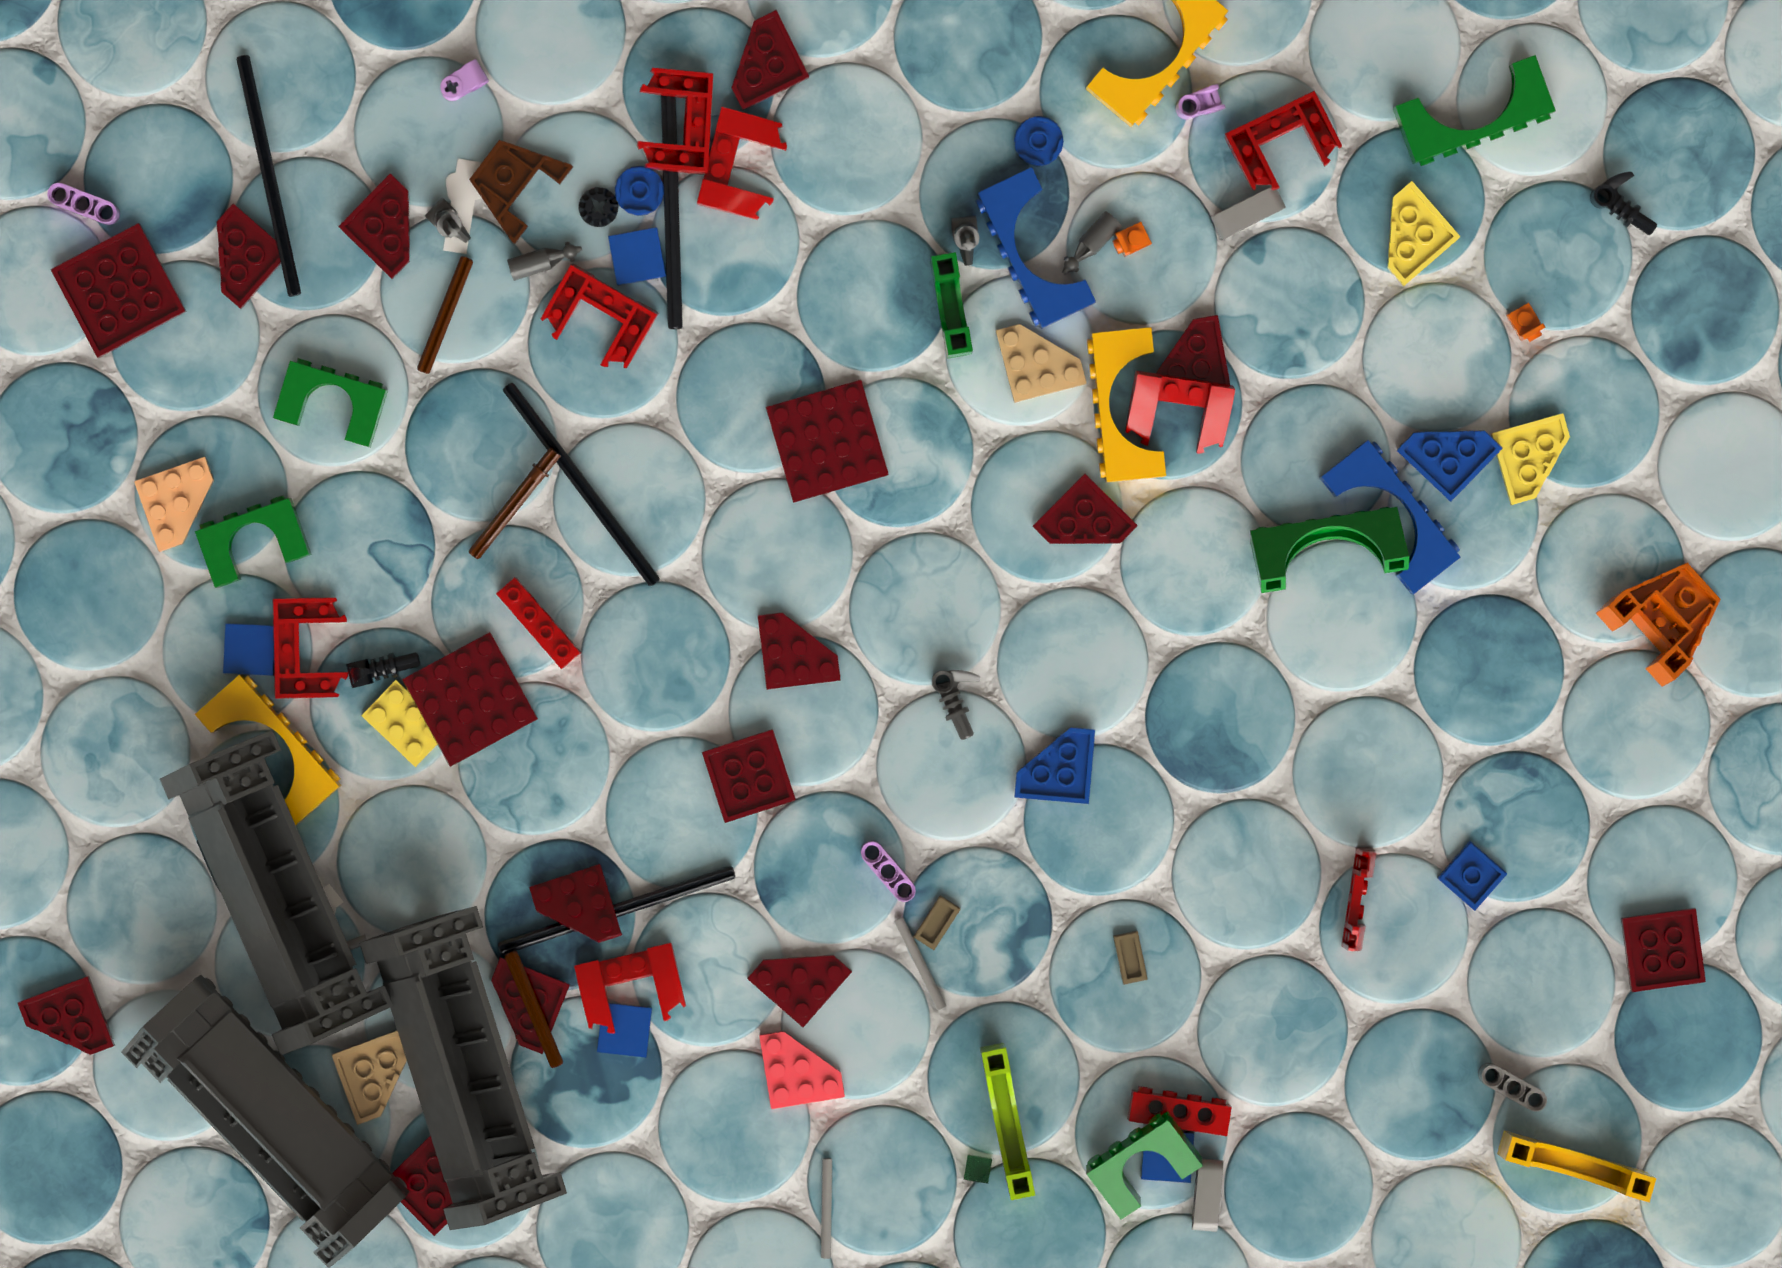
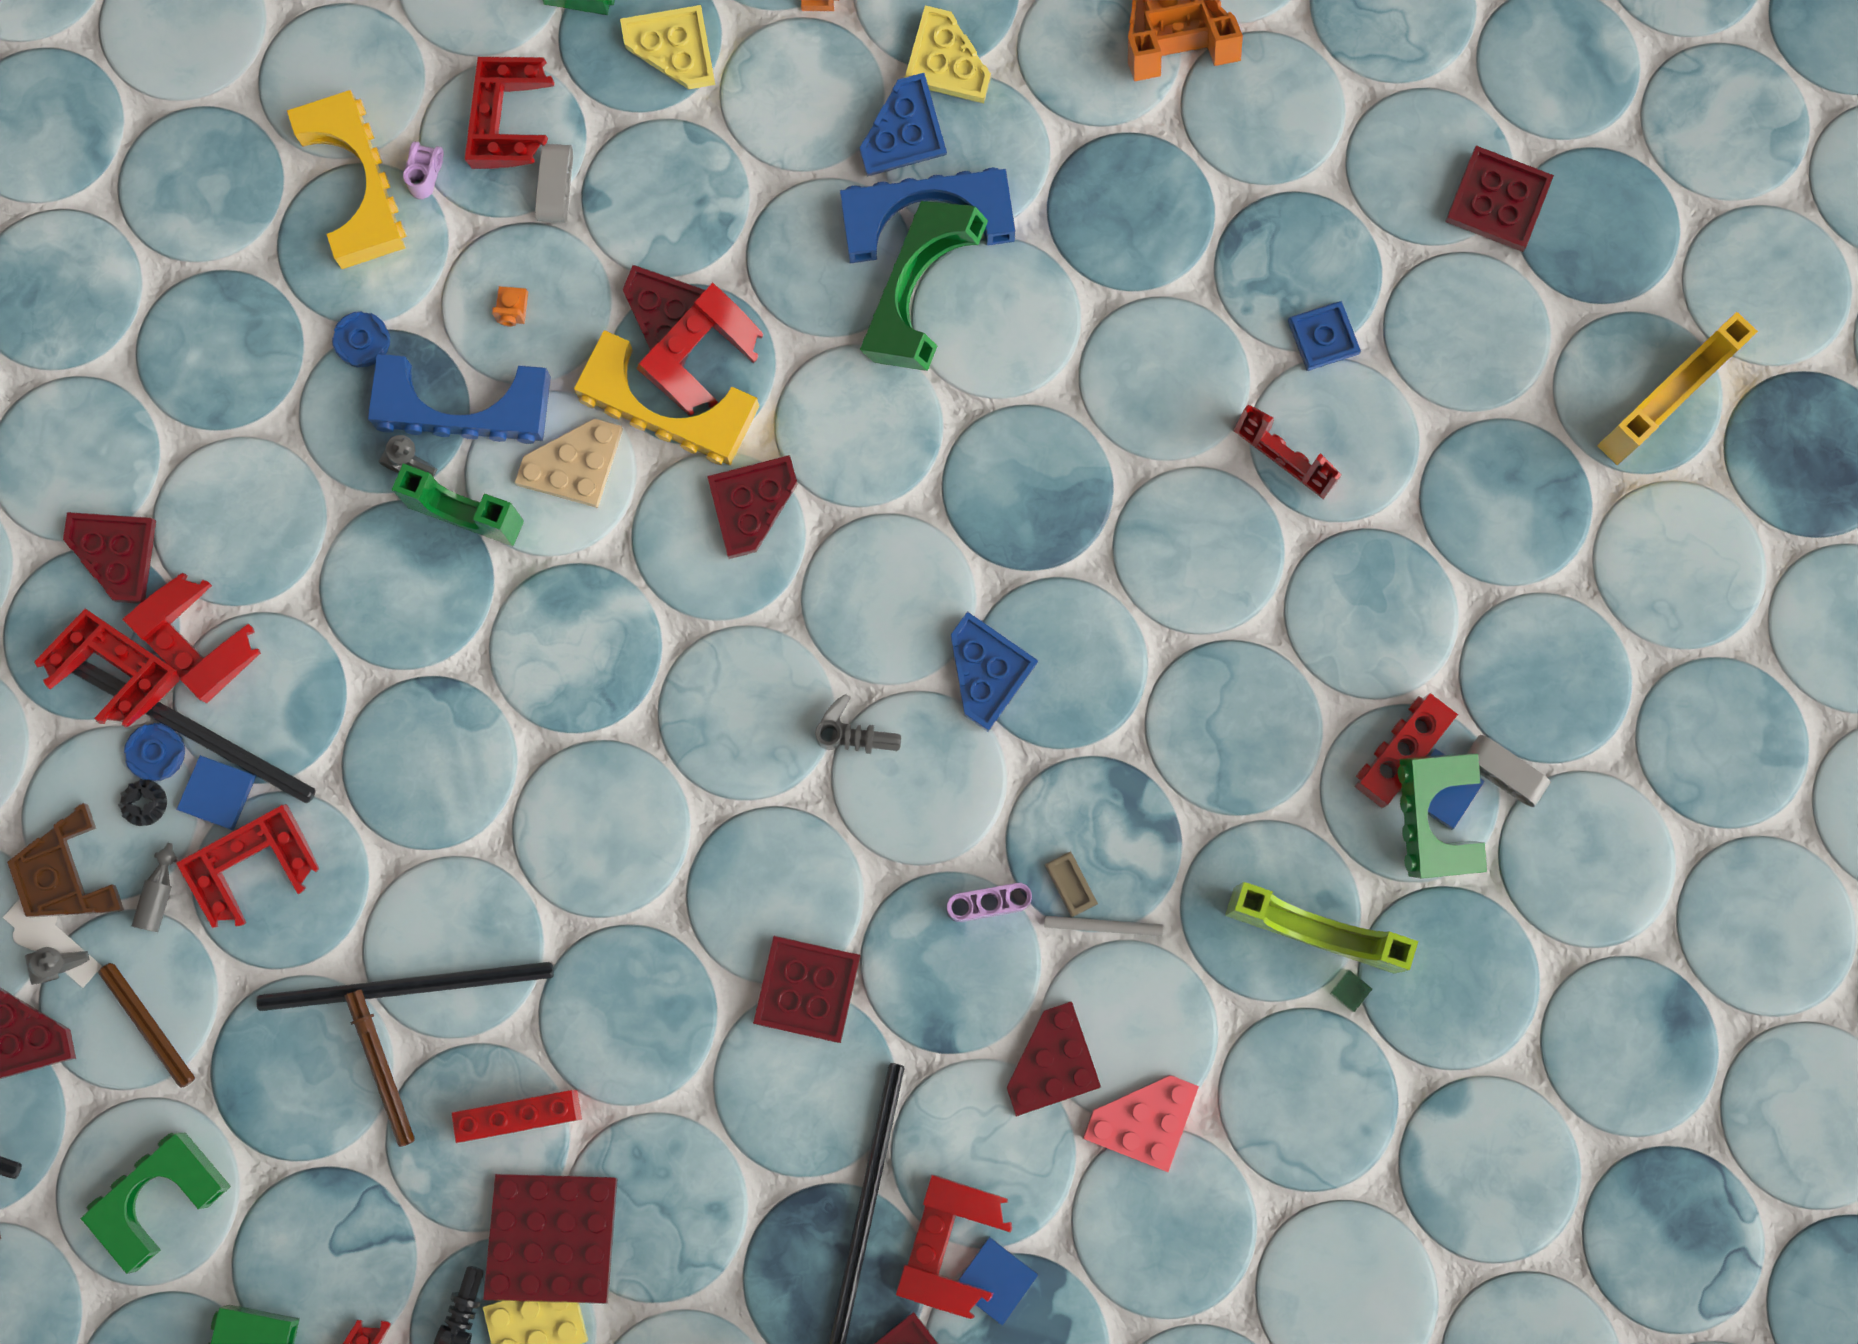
camera: 60 degrees left, 10 degrees down
(579, 903) = (833, 1249): dark red plate -> none
(793, 654) = (711, 870): dark red plate -> none
(826, 1208) = (1306, 1175): light grey piece -> none
(827, 441) = (519, 711): dark red plate -> none
(1092, 241) = (487, 340): dark grey wheel -> none
(1130, 957) = (1218, 710): dark tan tile -> none
(1500, 1085) = (1567, 402): light grey beam -> none

